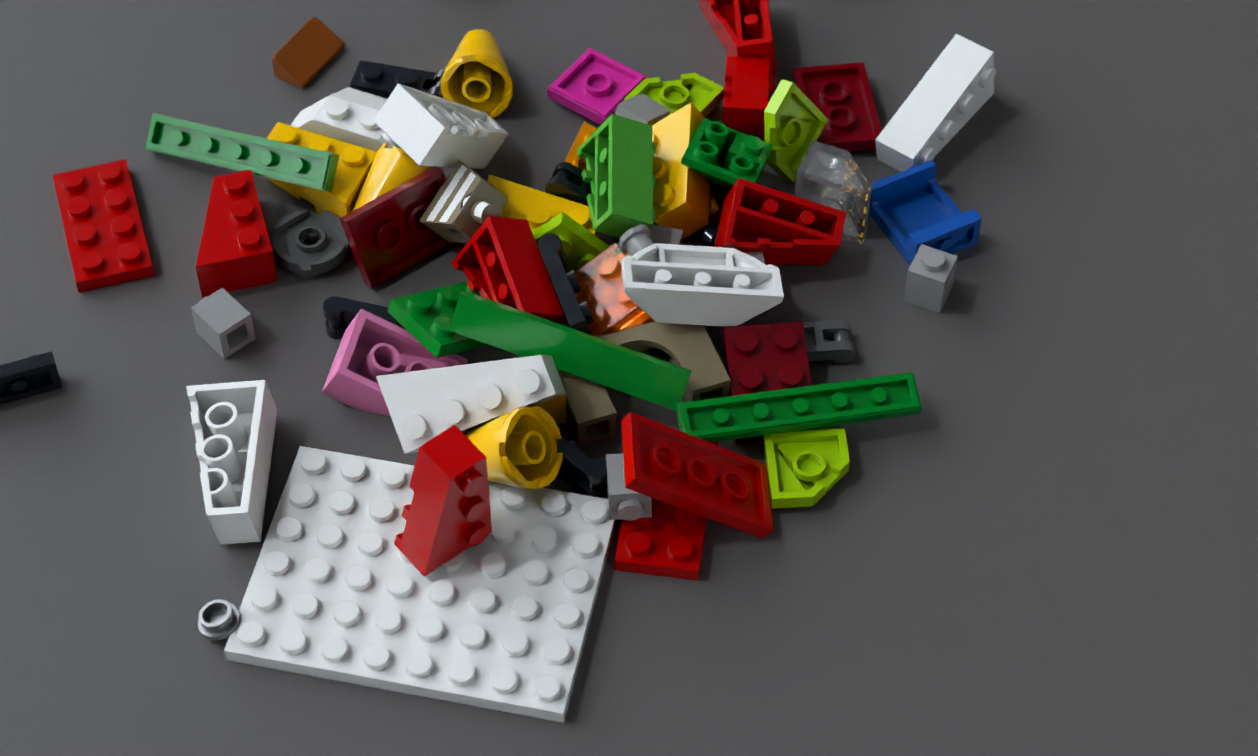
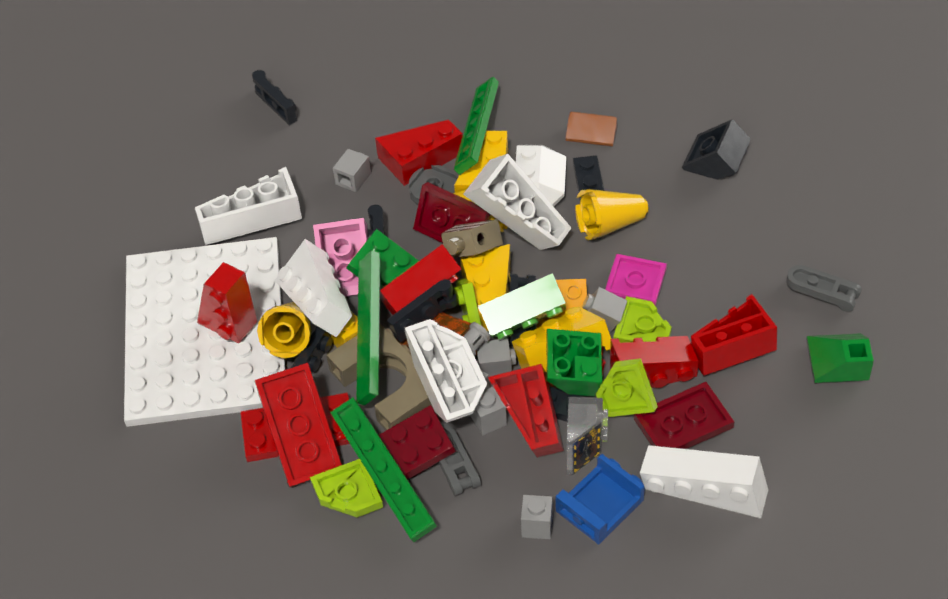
camera: 75 degrees right, 0 degrees up
(102, 226) = (410, 94): red plate -> none
(218, 619) = (145, 245): flat silver plate -> none

